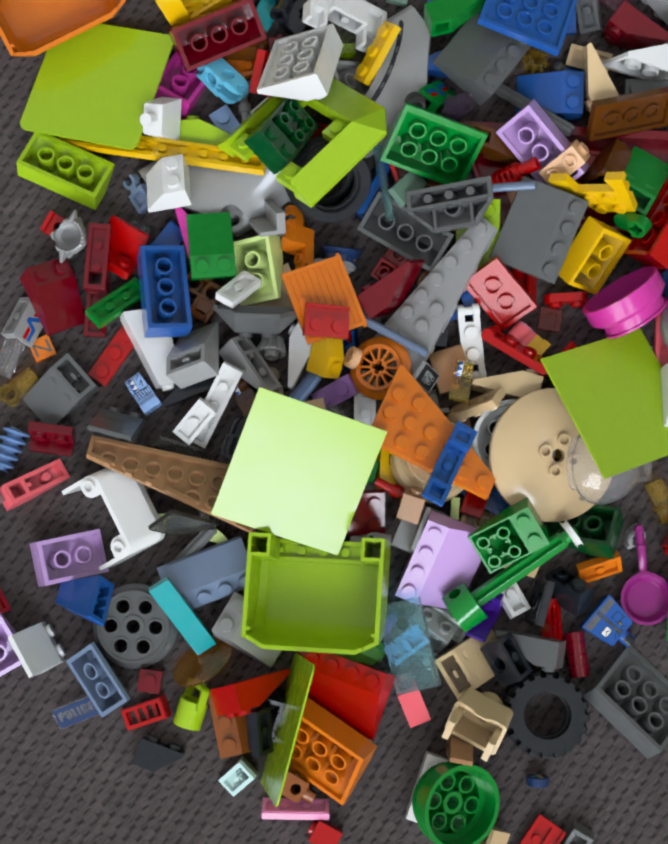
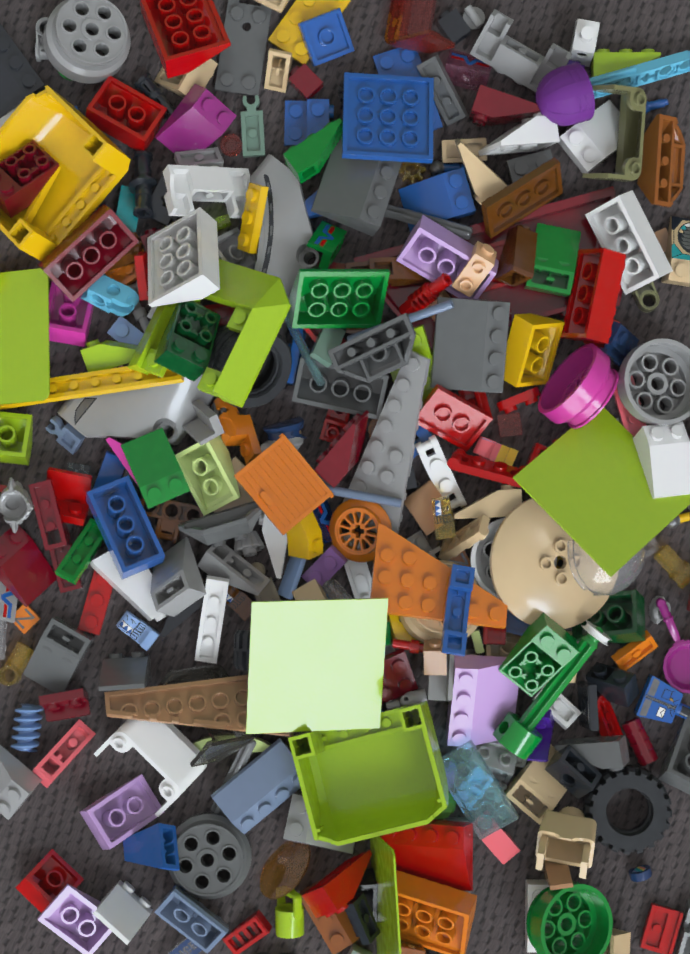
camera: 25 degrees left, 5 degrees up
(150, 680) = (241, 903): dark red brick -> none
(162, 118) = (63, 356): white torso -> none
(168, 184) = (93, 421): white slope -> none
(182, 615) = (250, 833): teal tile -> none
(195, 421) = (198, 642): white plate -> none
(238, 289) = (196, 503): white plate -> none
(326, 321) = (293, 507): red plate -> none
(352, 357) = (330, 529): light nougat tile -> none
(426, 376) = (407, 525): slope -> none
(457, 106) = (349, 248): clear purple arm -> none
(601, 197) = (526, 289): yellow wing -> none
(635, 223) = (563, 307): green piece -> none

